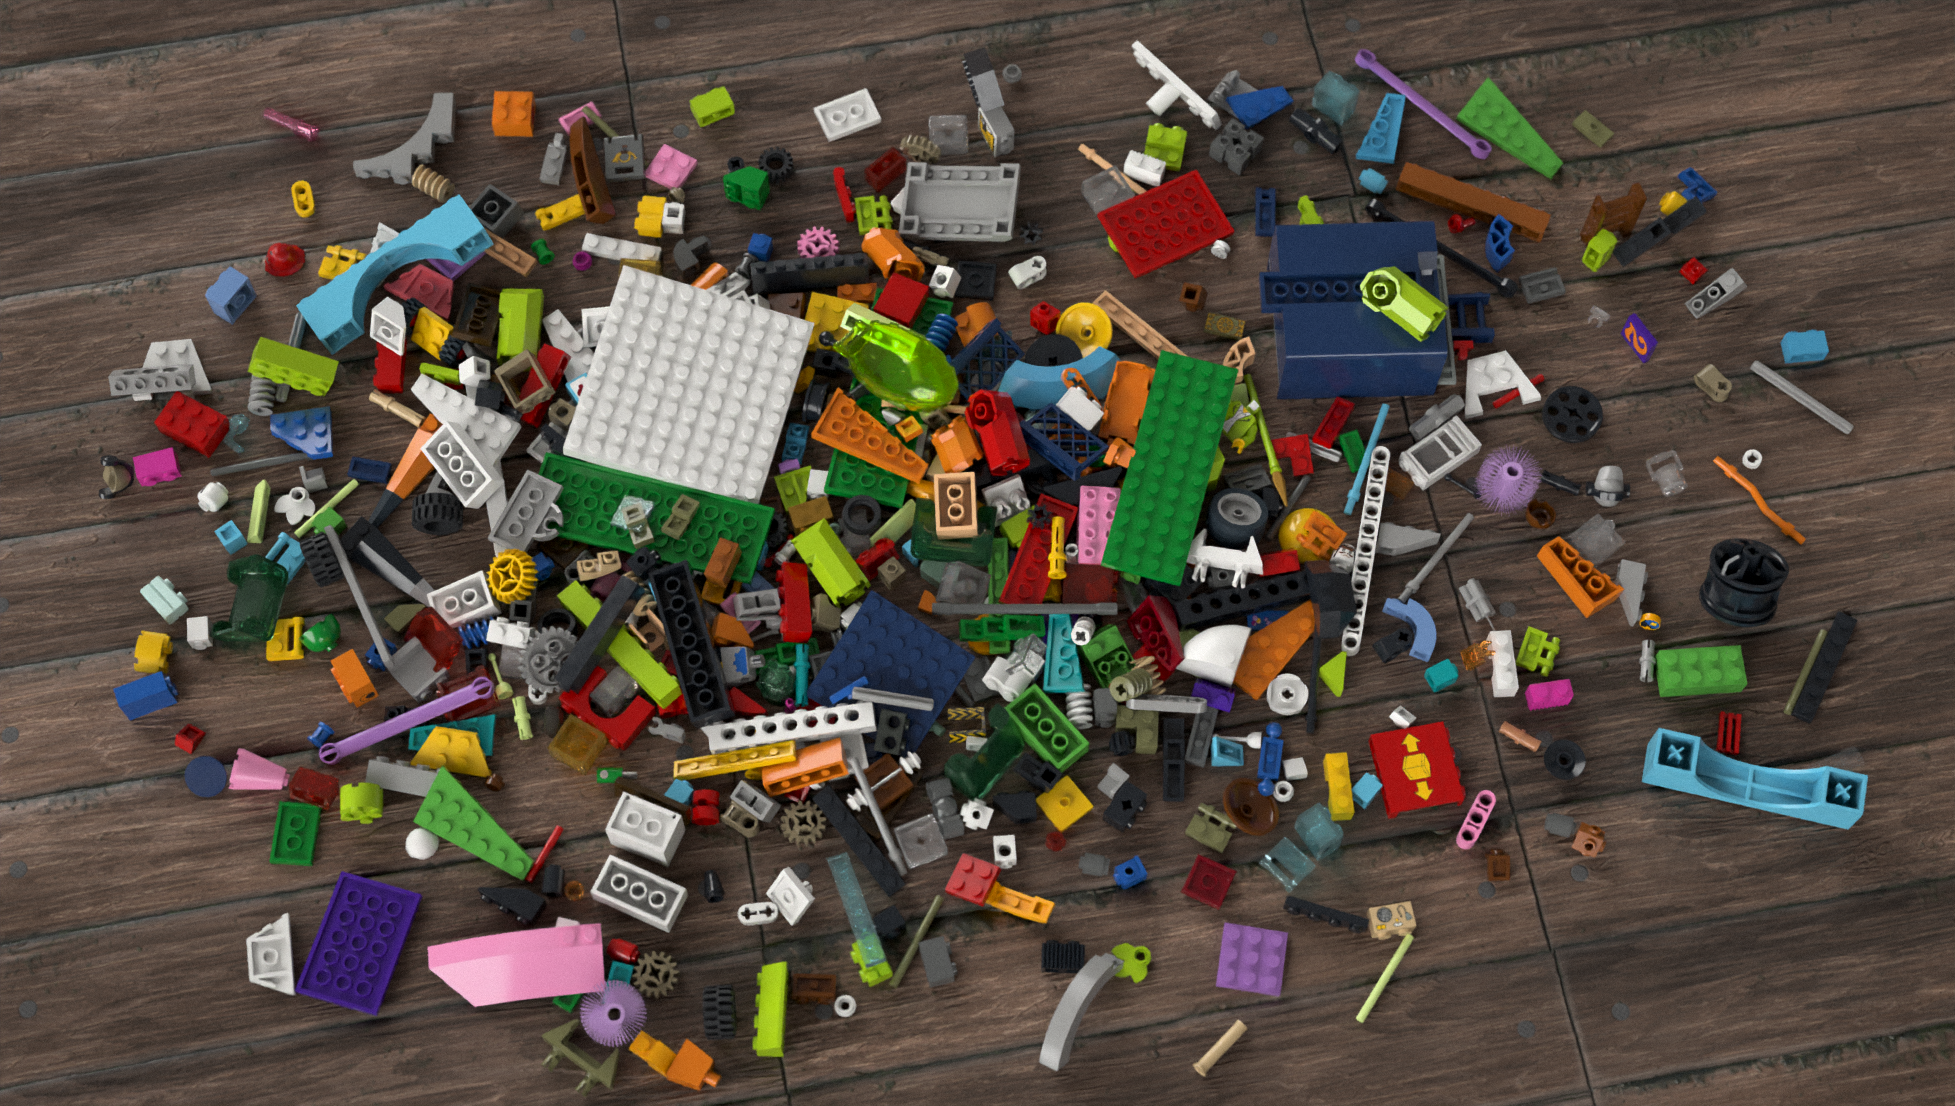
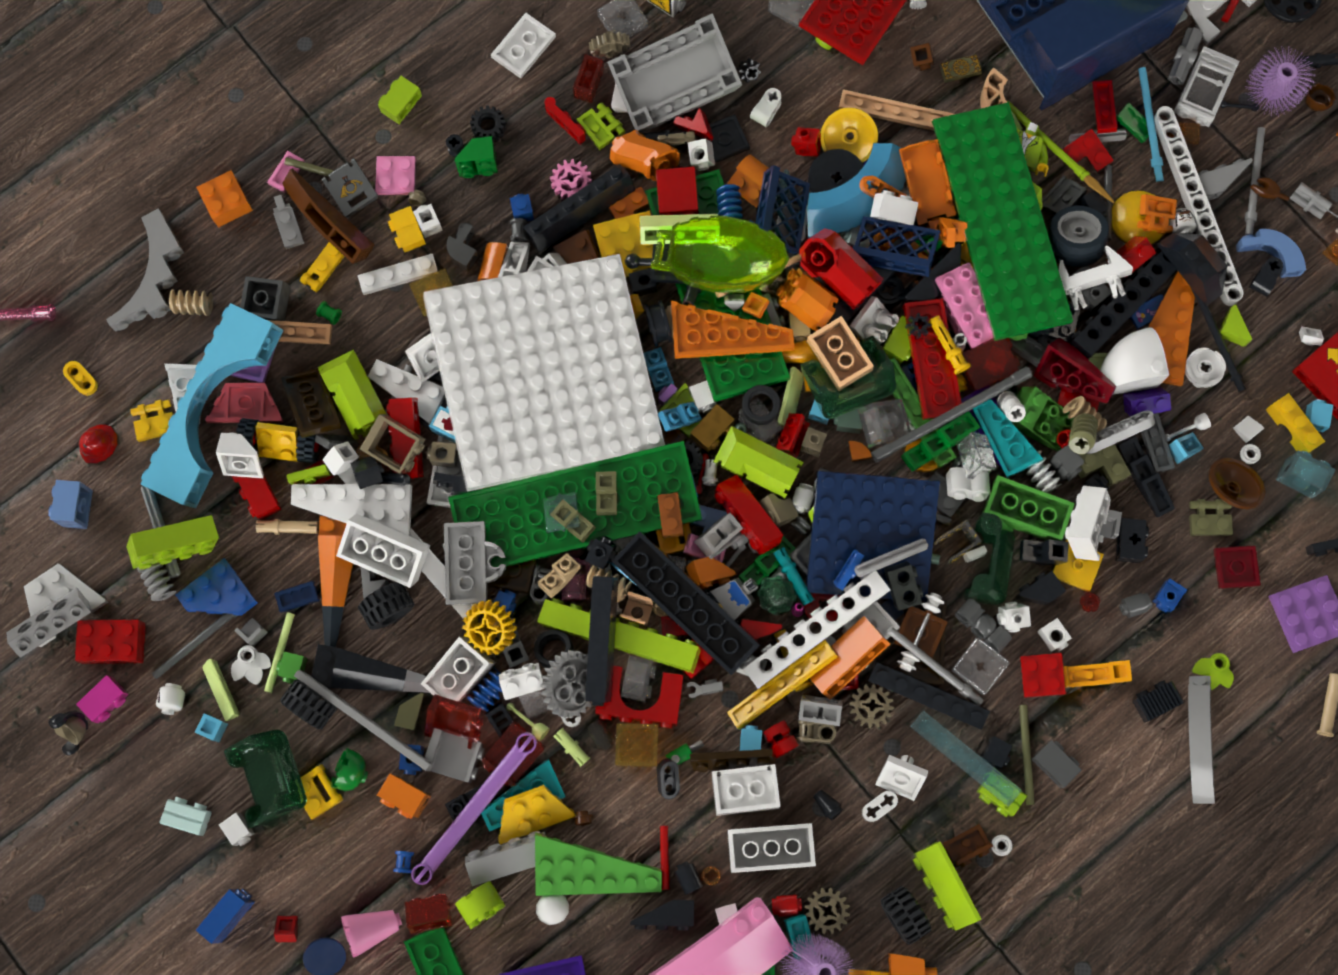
camera: 25 degrees left, 10 degrees up
(152, 652) = (206, 872): yellow brick -> none
(237, 425) = (151, 619): clear light blue plate -> none
(292, 557) = (276, 715): medium azure plate -> none
(582, 261) = (369, 303): magenta plate -> none
(587, 786) = (668, 777): none -> black plate
(787, 490) = (680, 416): none -> dark azure slope
(957, 255) = (698, 125): none -> red slope
(1089, 765) = (1087, 522): none -> white wedge
(1270, 759) = (1224, 432): blue plate -> none
(1292, 860) = (1292, 509): clear light blue plate -> none
(1441, 675) = (1321, 282): teal brick -> none
(1443, 573) = (1270, 190): none -> reddish brown hand

